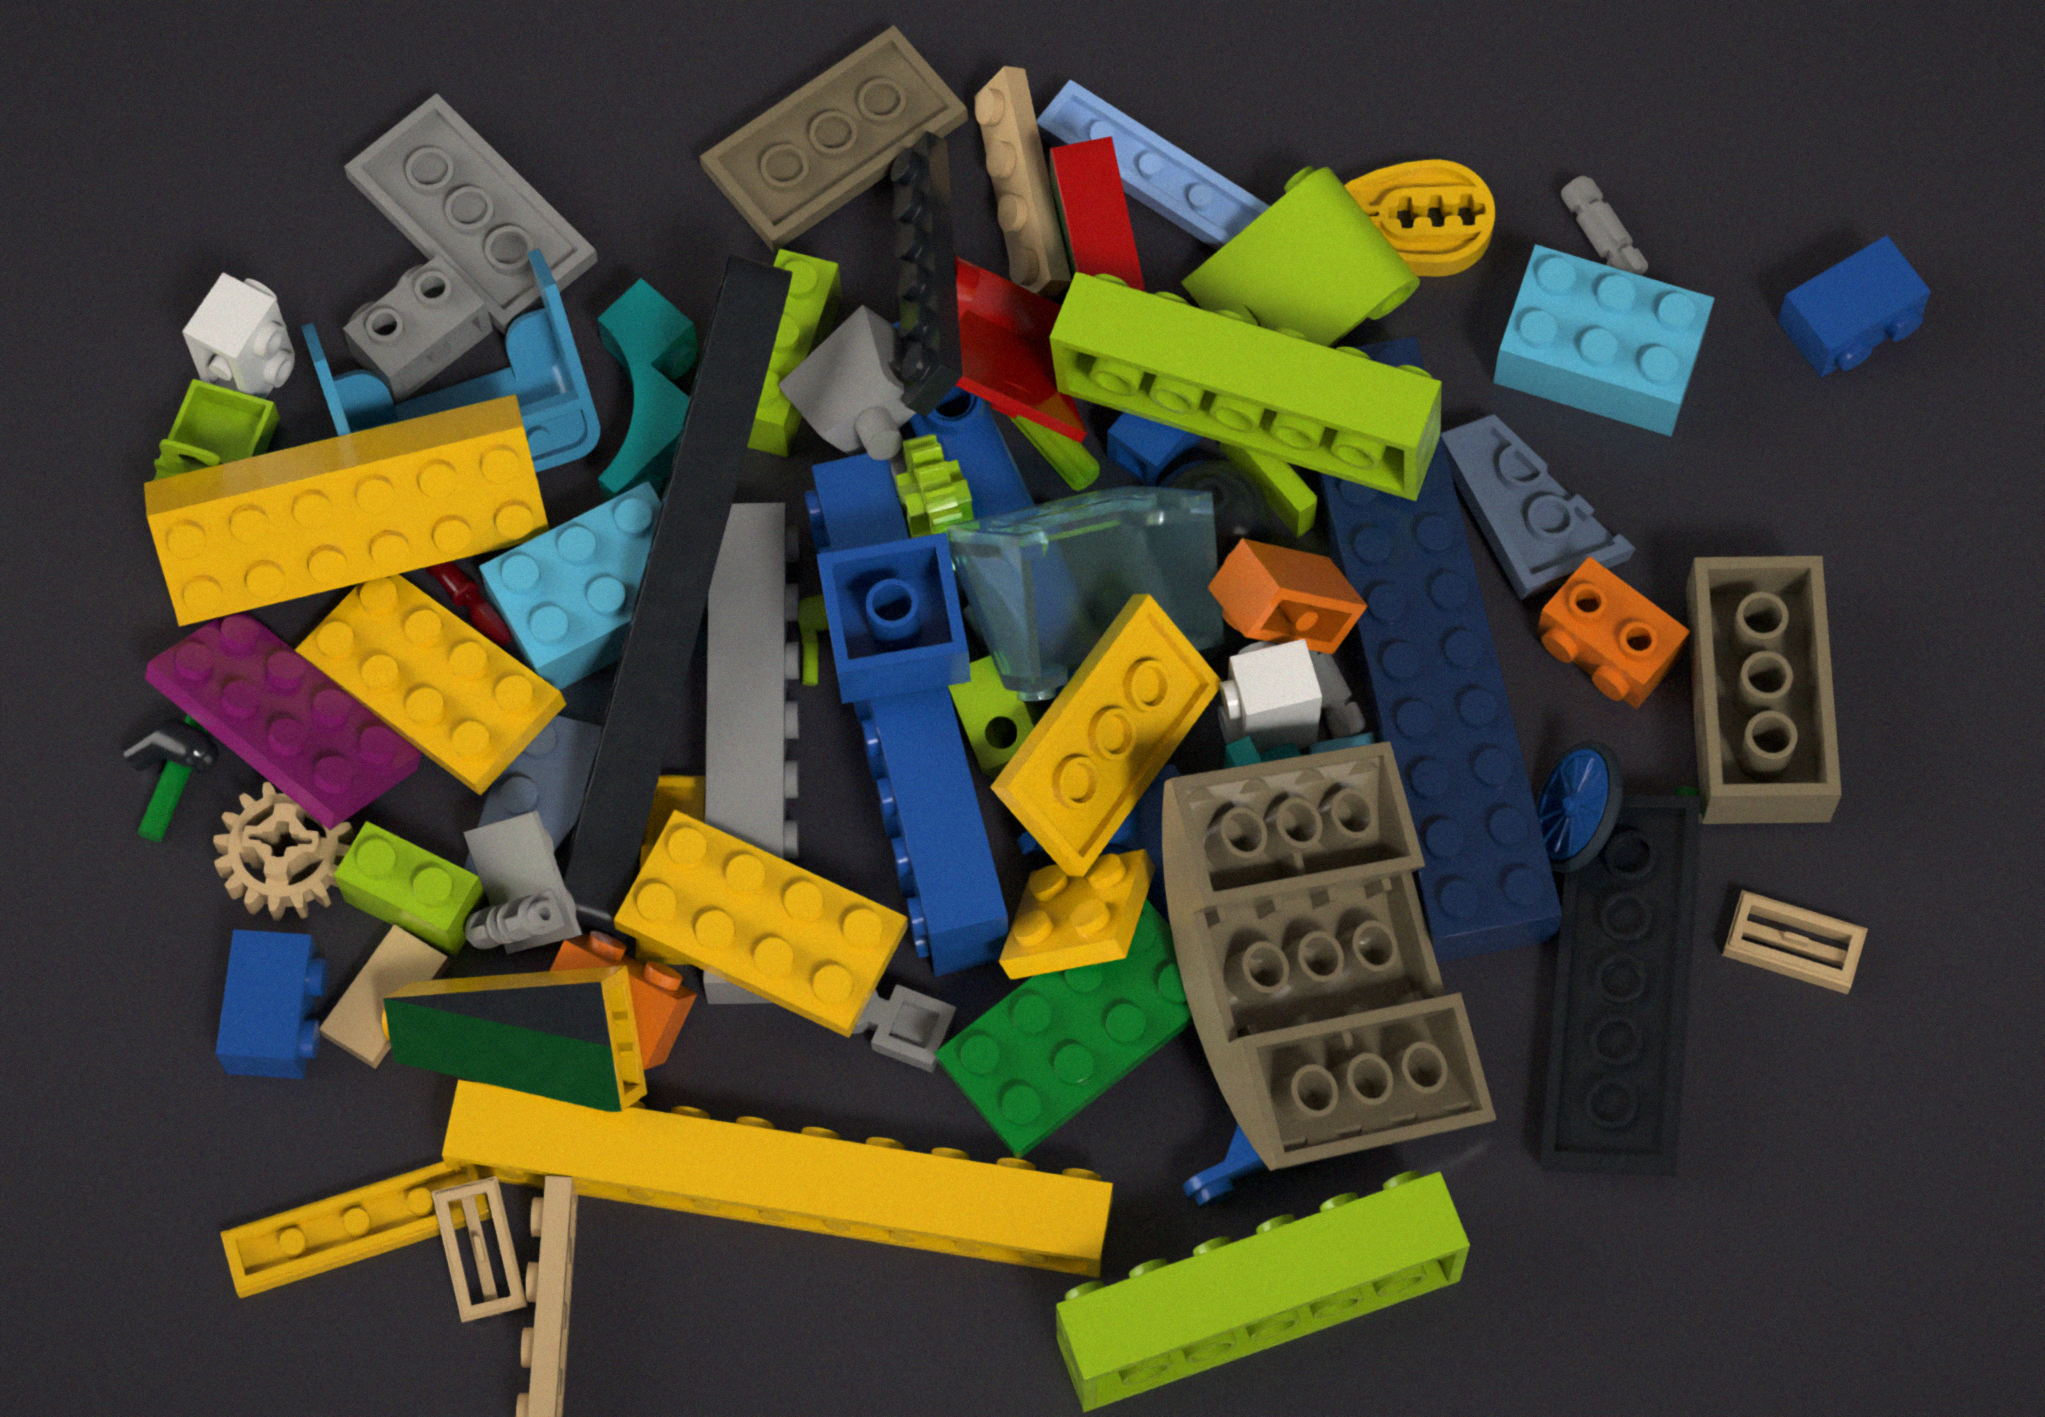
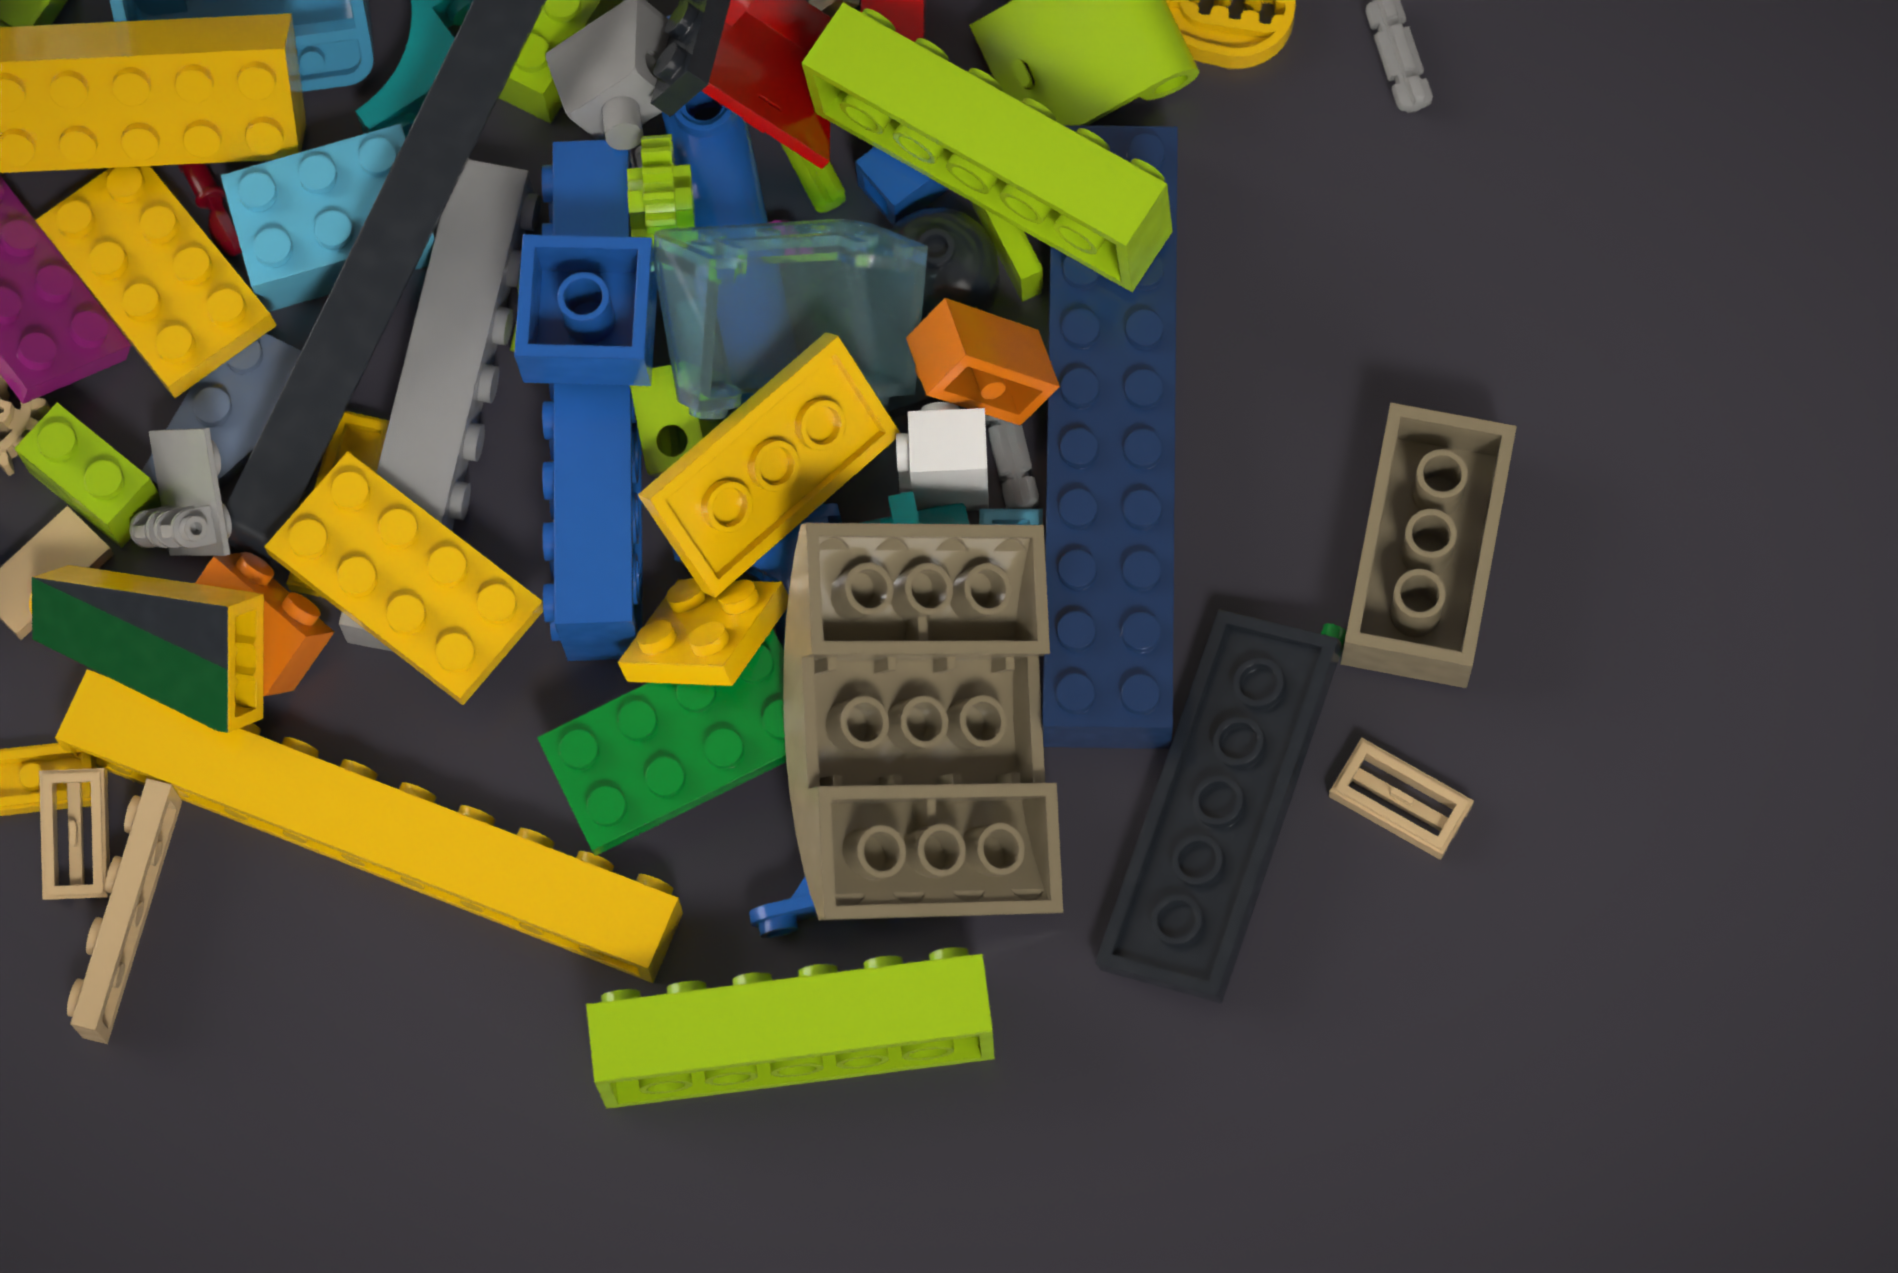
camera: 15 degrees right, 5 degrees up
(908, 1026) = (526, 703): light grey plate -> none
(1523, 511) = (1247, 324): sand blue wing -> none
(1579, 804) = (1217, 623): blue wheel -> none
(1603, 340) = (1365, 165): medium azure brick -> none
(1611, 633) = (1298, 460): orange brick -> none
(1854, 307) = (1624, 181): blue brick -> none

